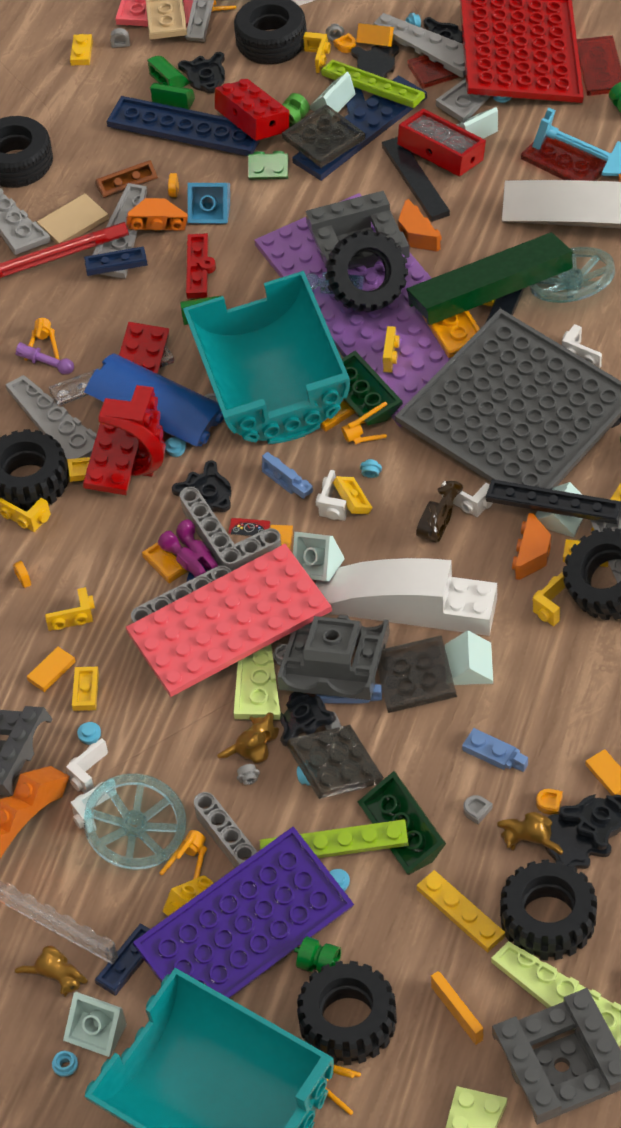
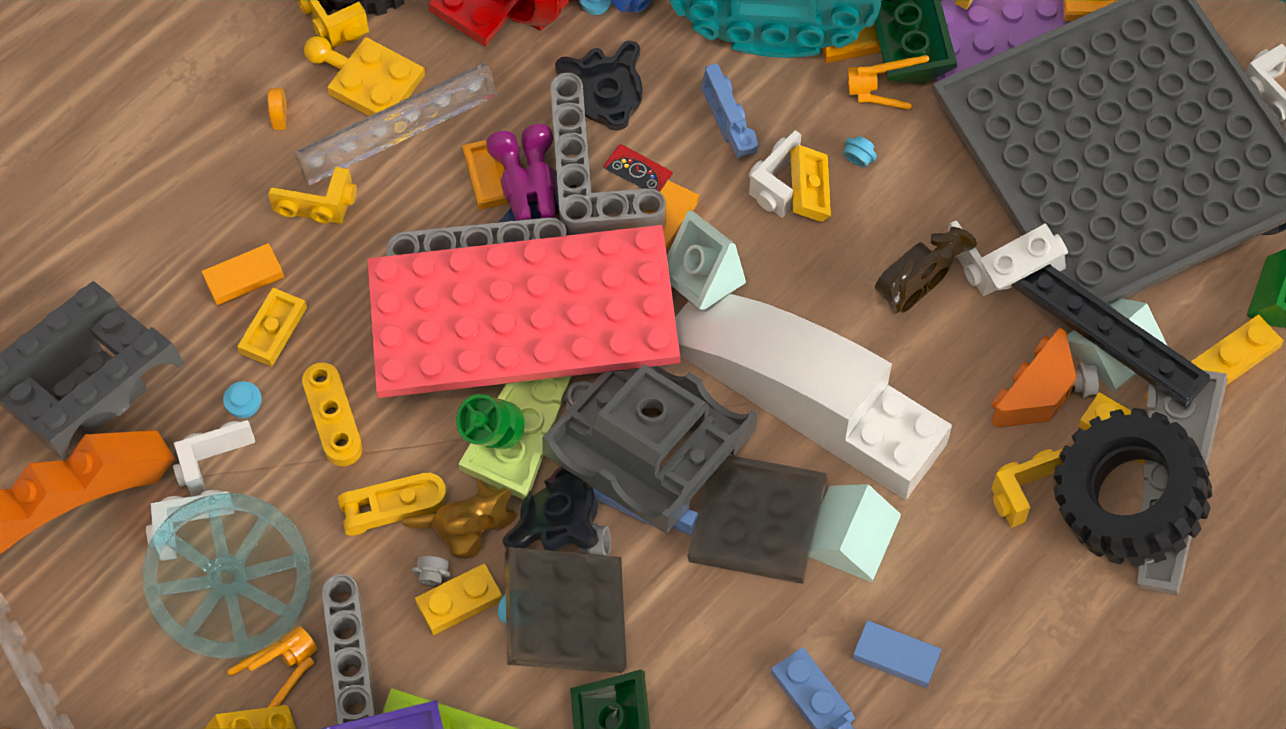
camera: 20 degrees right, 10 degrees up
(67, 537) = (370, 77): none -> yellow plate
(97, 555) = (396, 123): none -> clear plate
(149, 726) = (336, 425): none -> yellow plate
(205, 749) = (392, 502): none -> yellow plate
(243, 680) = (490, 422): none -> green wheel
(270, 783) = (458, 599): none -> yellow plate
(492, 483) = (1025, 257): none -> white bracket
(525, 711) = (897, 654): none -> medium blue tile
(557, 535) = (1086, 380): none -> light grey plate

